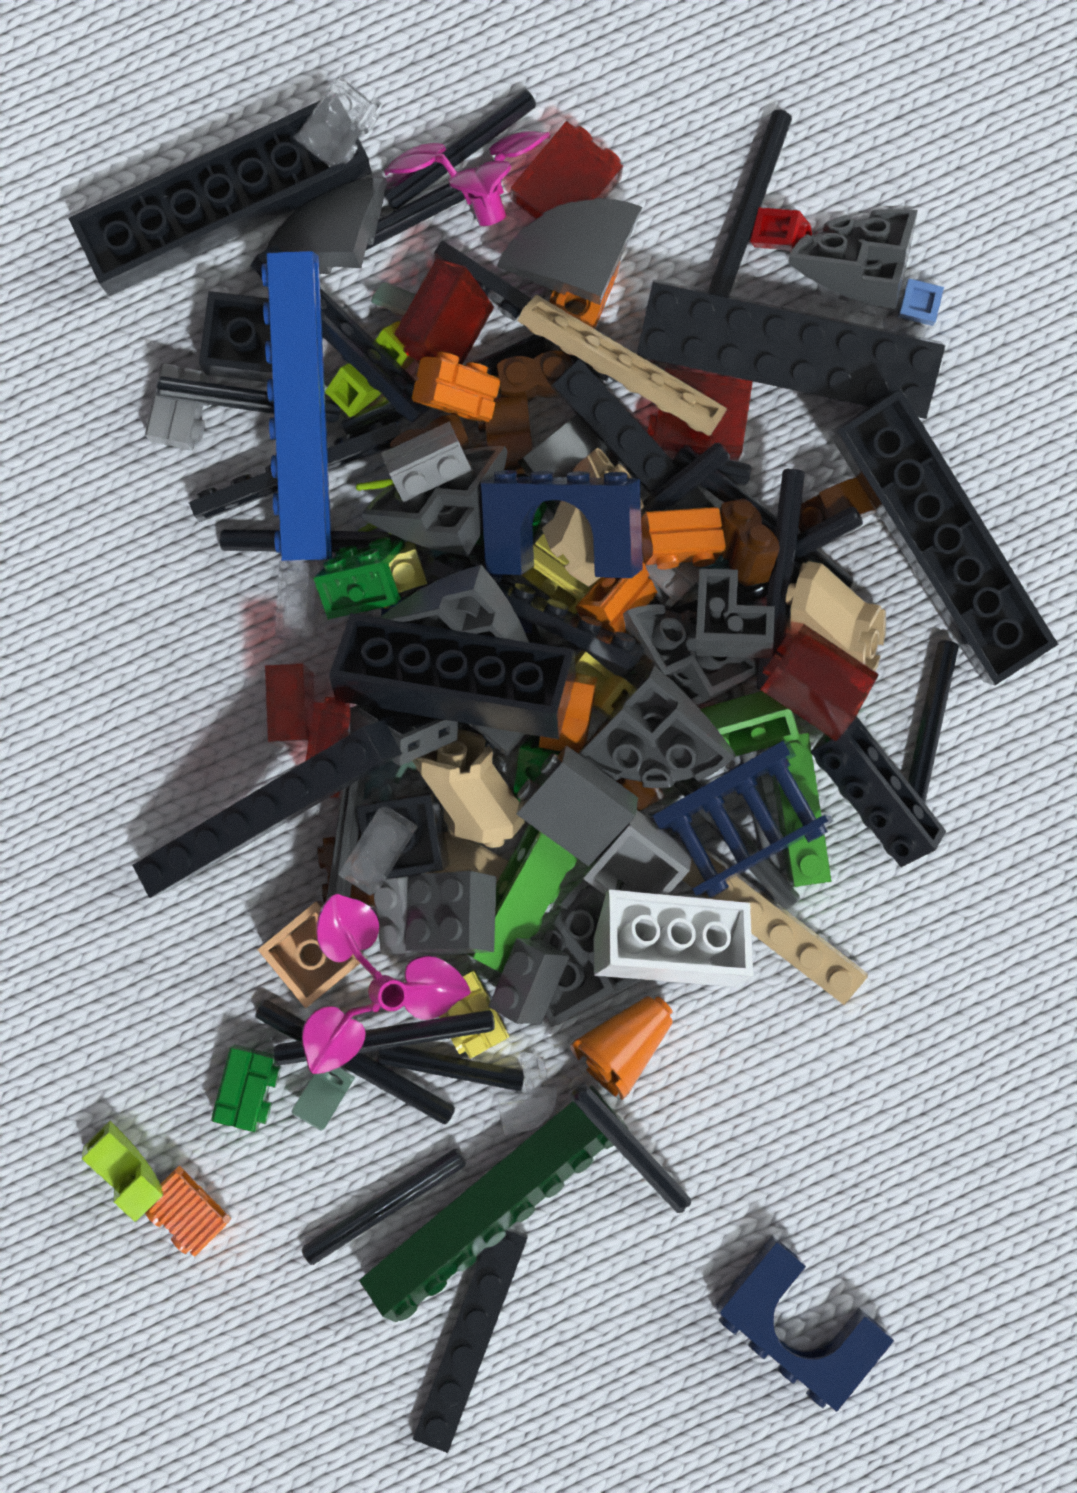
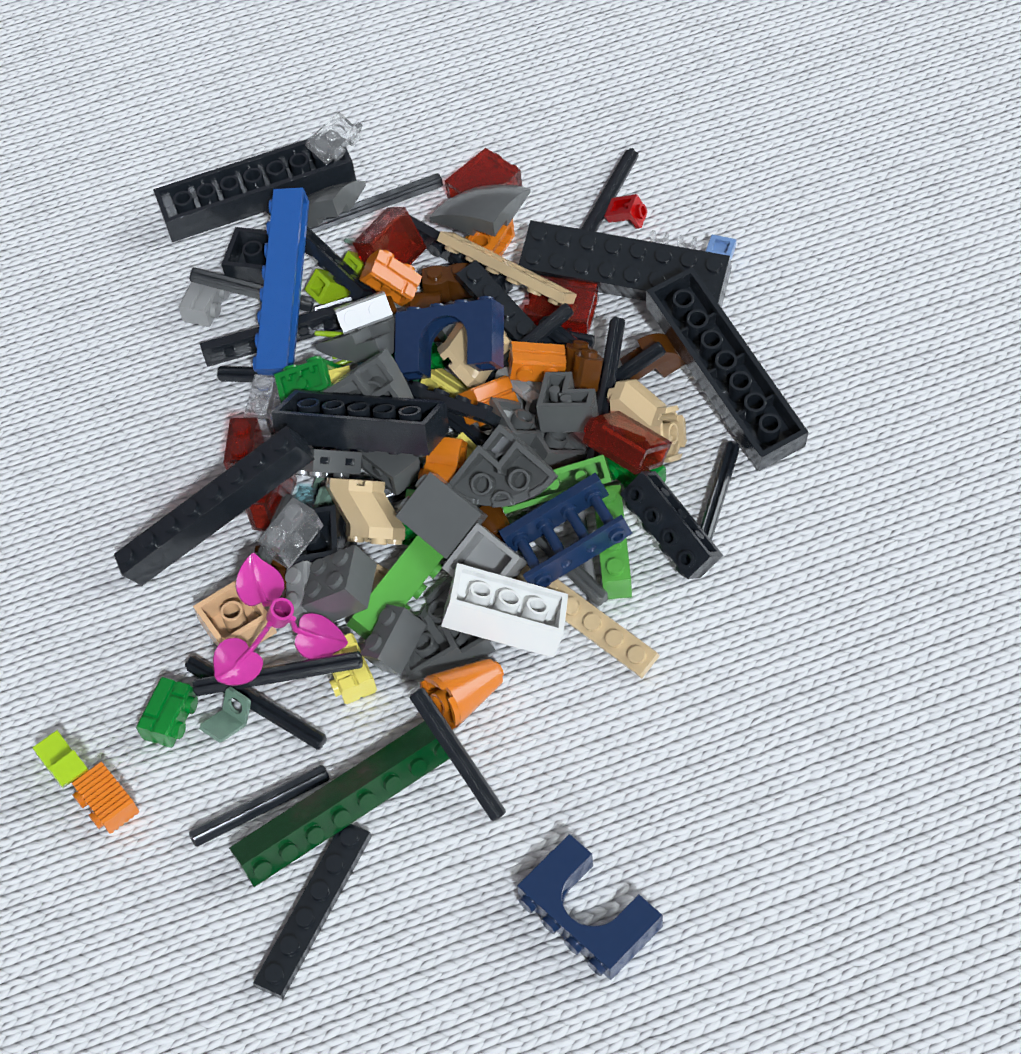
camera: 15 degrees right, 30 degrees down
(452, 1067) = (328, 708): black axle -> none
(462, 148) = (417, 168): black axle -> none
(479, 185) = (428, 188): dark pink plant -> none
(529, 1106) = (382, 730): clear brick -> none
(860, 256) = (685, 225): dark grey brick -> none

